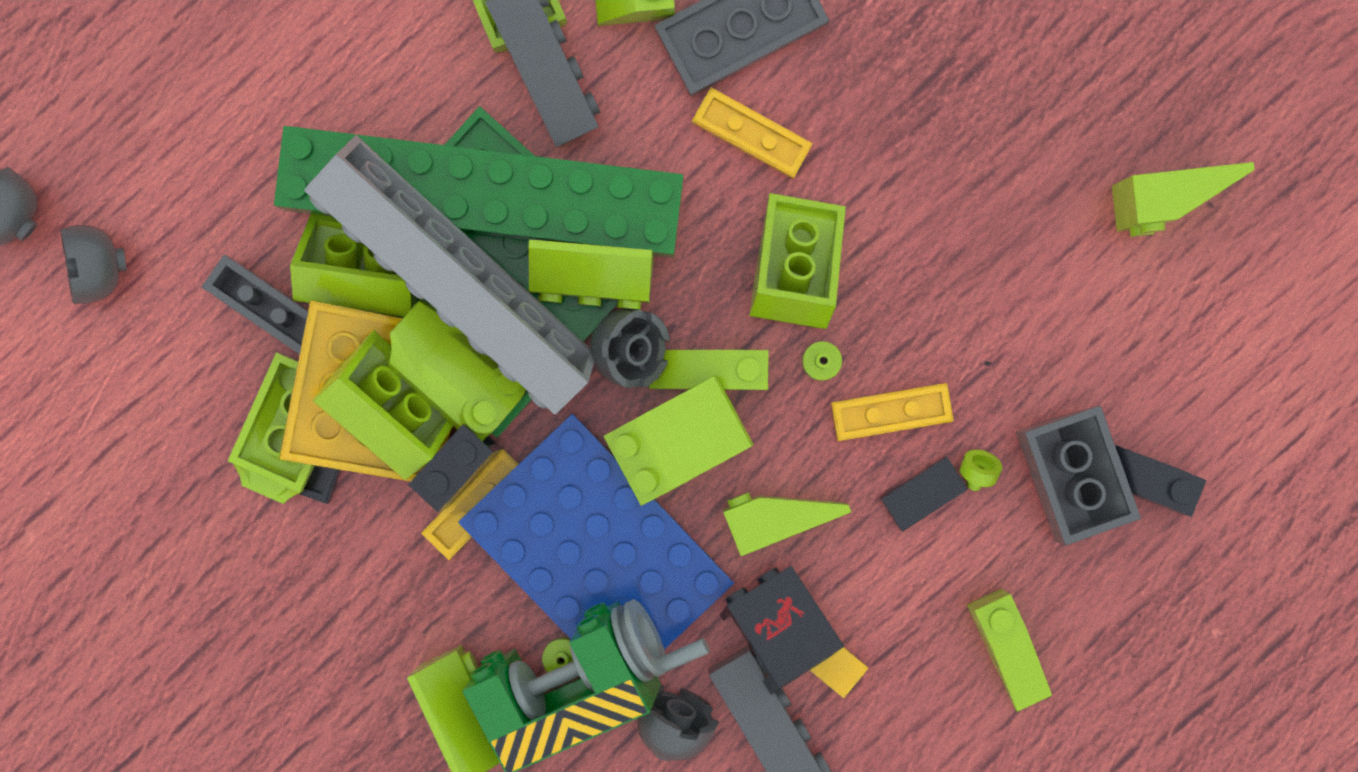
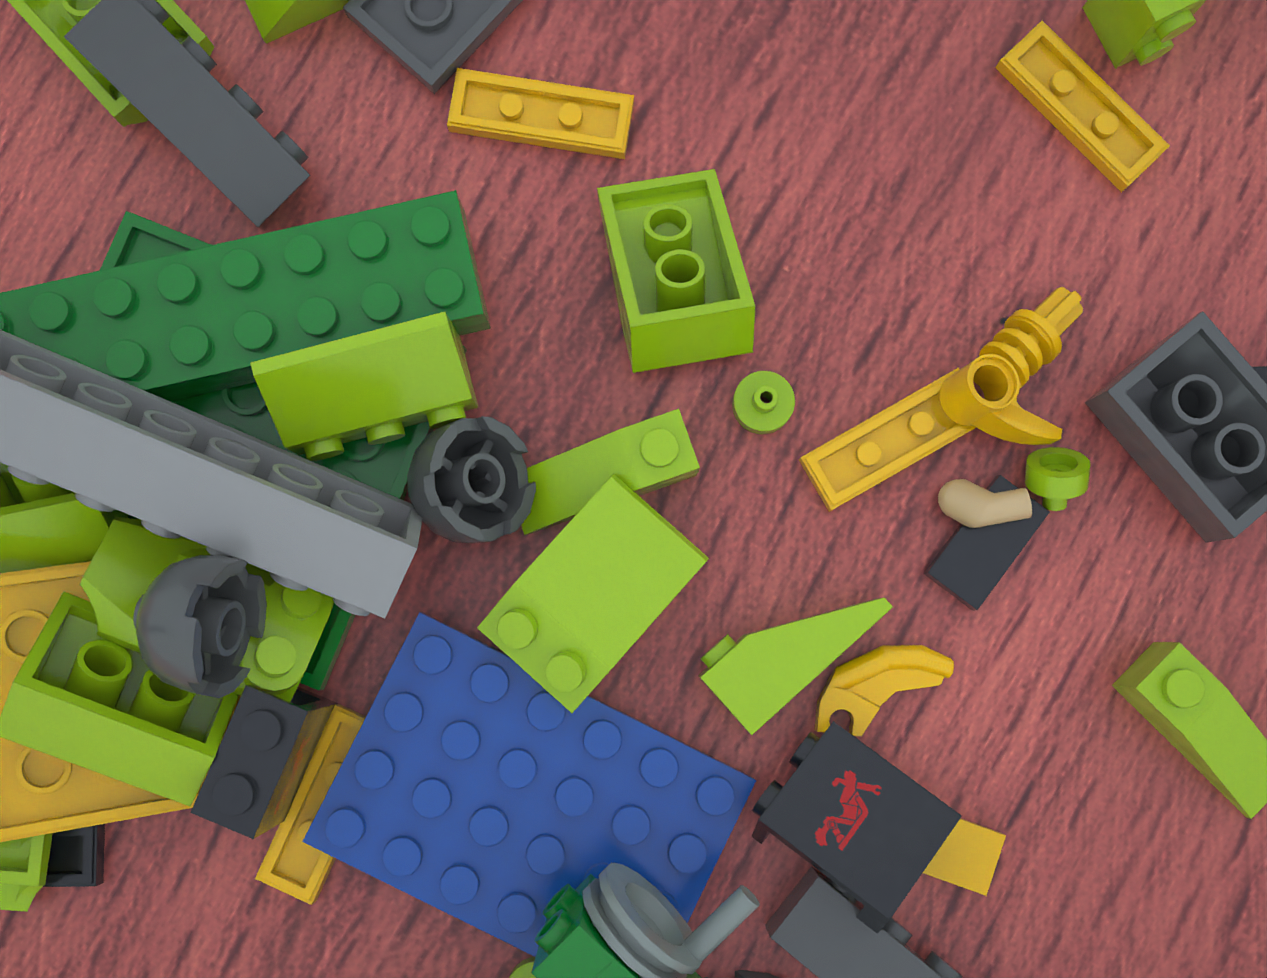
camera: 25 degrees left, 5 degrees down
(450, 381) = (199, 623): none -> dark grey cylinder
(826, 548) = (874, 677): none -> yellow piece
(927, 472) = (980, 507): none -> tan arm
(973, 394) = (1005, 367): none -> yellow piece
(1085, 248) = (1082, 106): none -> yellow tile

